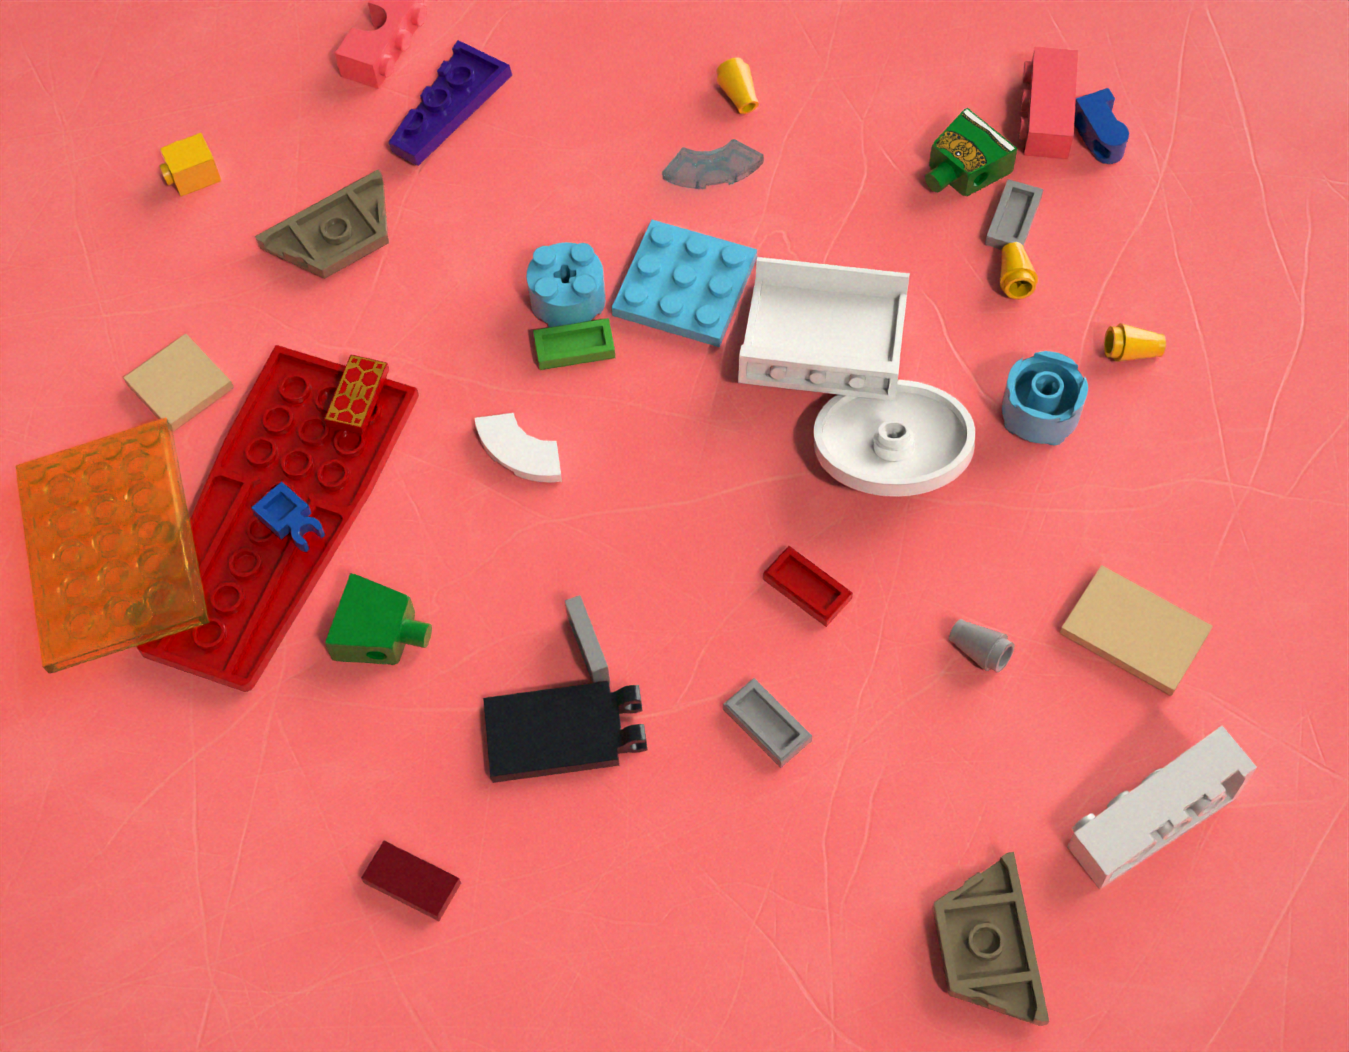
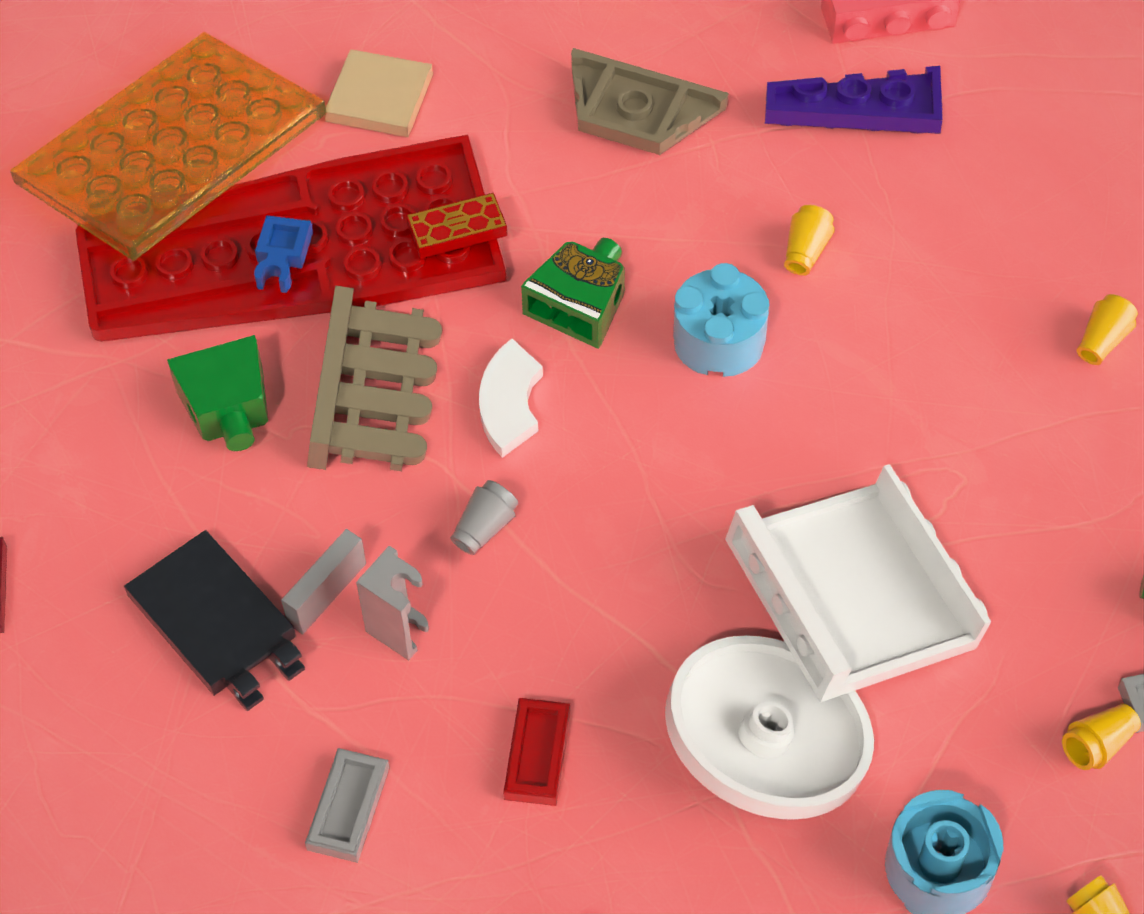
camera: 55 degrees right, 5 degrees down
(426, 546) = (372, 402): none -> dark tan fence
(471, 354) = (577, 290): none -> green torso
(534, 197) = (807, 238): none -> yellow cone
(574, 344) = (667, 373): bright green tile -> none
(608, 515) = (484, 516): none -> light grey cone
(649, 608) = (386, 602): none -> light grey hinge
(684, 283) = (820, 426): medium azure plate -> none
(712, 167) = (982, 367): clear light blue tile -> none

